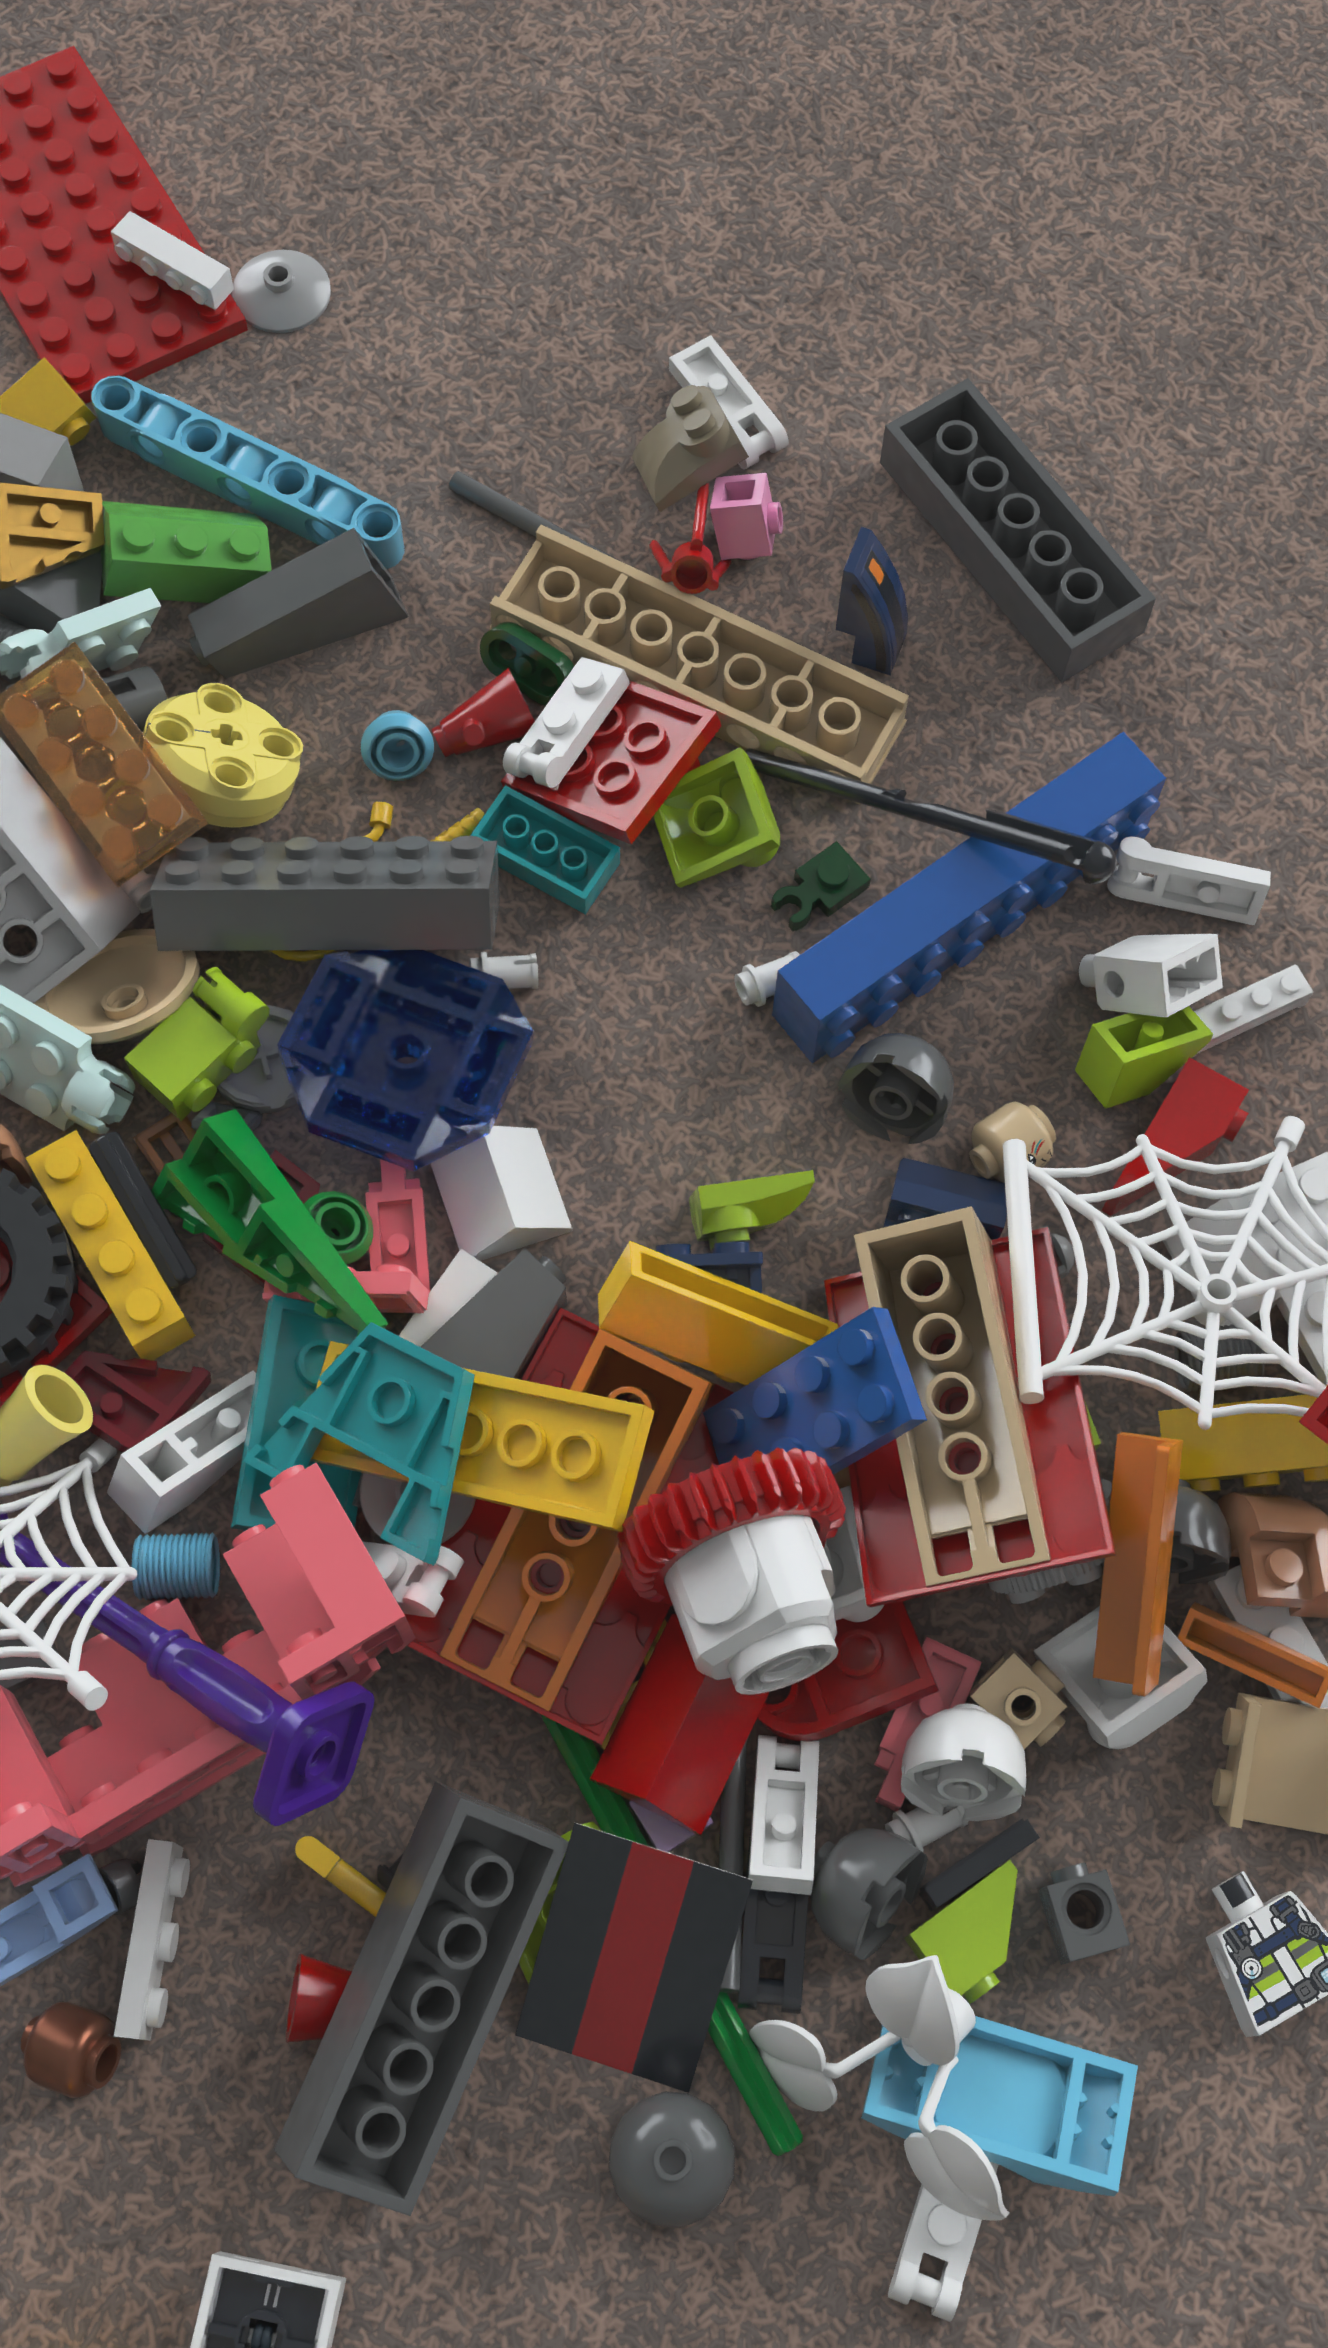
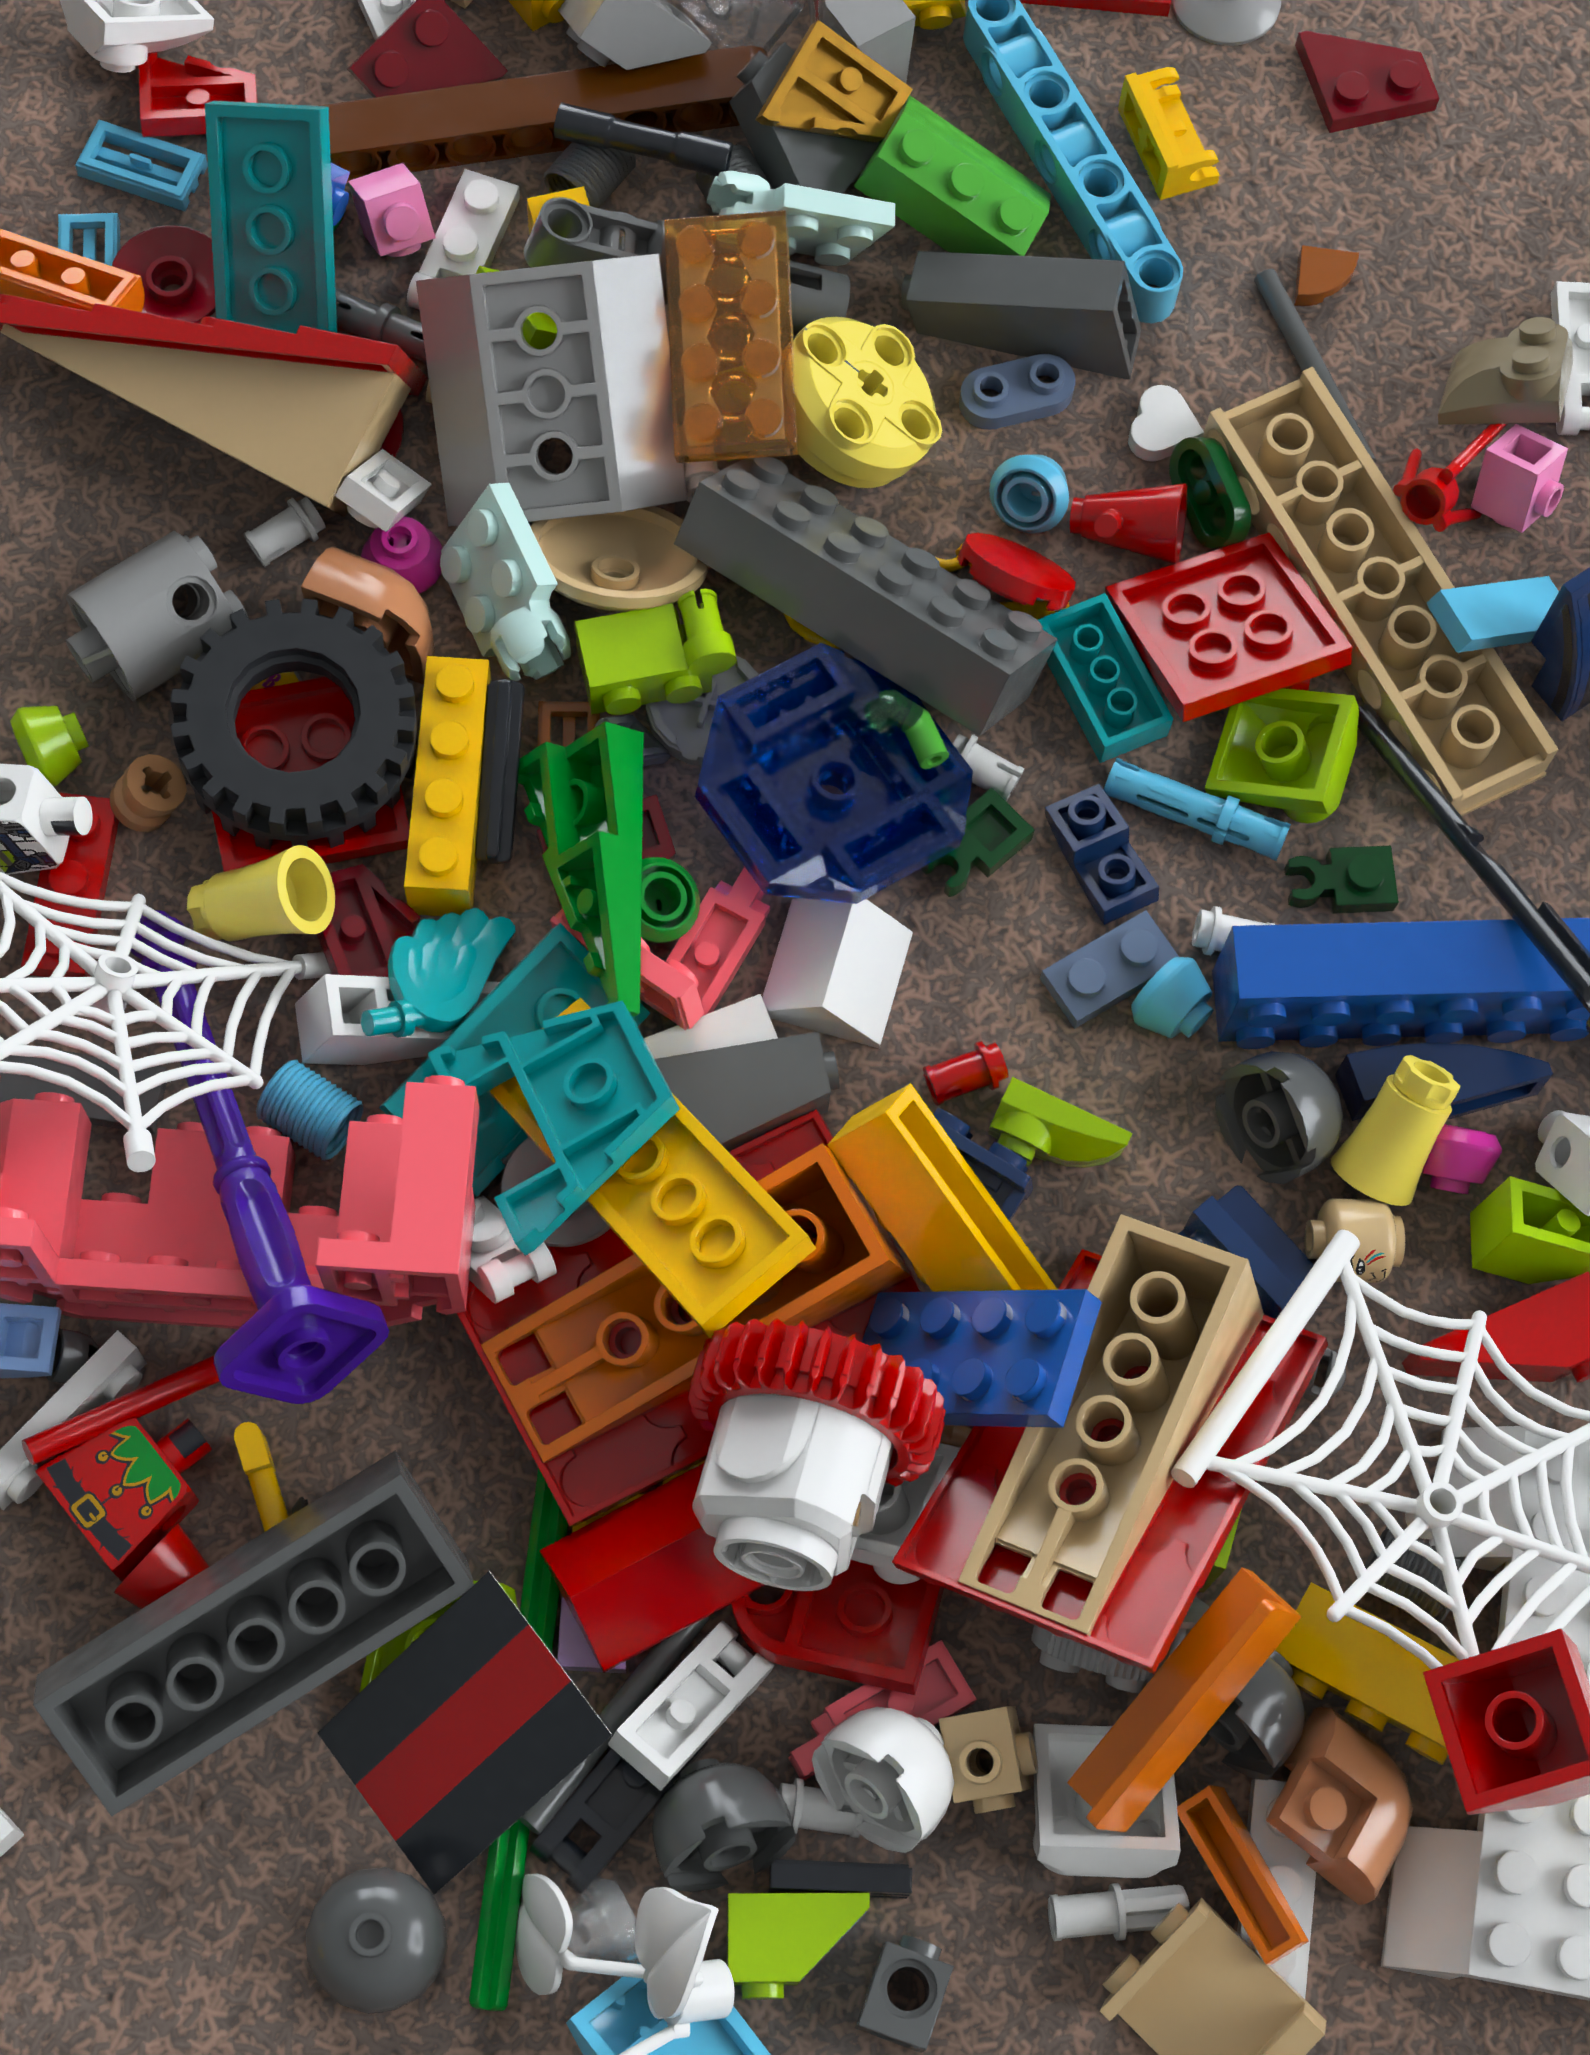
camera: 30 degrees right, 0 degrees up
(200, 1887) = (131, 1405): none -> red bar
(205, 1394) = (439, 973): none -> teal animal
(239, 1955) = (127, 1488): none -> torso
(308, 418) = (1165, 134): none -> yellow hinge
(335, 675) = (1020, 392): none -> sand blue plate
(426, 293) = (1364, 80): none -> dark red wing
(429, 810) = (1016, 571): none -> red tile
(436, 969) = (916, 723): none -> arm
(456, 635) = (1161, 423): none -> white tile
(495, 453) = (1322, 273): none -> dark orange tile
(550, 1018) = (990, 839): none -> dark green plate
(567, 723) = (1204, 570): white plate -> none
(632, 981) = (1100, 854): none -> dark blue slope
(650, 1206) = (966, 1073): none -> red pin
(690, 901) = (1197, 809): none -> medium azure pin
(699, 1061) = (1108, 969): none -> sand blue plate
(763, 1053) = (1174, 1000): none -> medium azure cone
(797, 623) = (1493, 612): none -> medium azure tile
(837, 2022) = (603, 1924): none -> clear cone
(987, 989) = (1484, 1074): none -> dark blue slope
(991, 1045) = (1398, 1132): none -> light yellow plant
(1038, 1035) = (1461, 1158): none -> dark pink cone
(1182, 1746) = (1112, 1911): none -> white axle

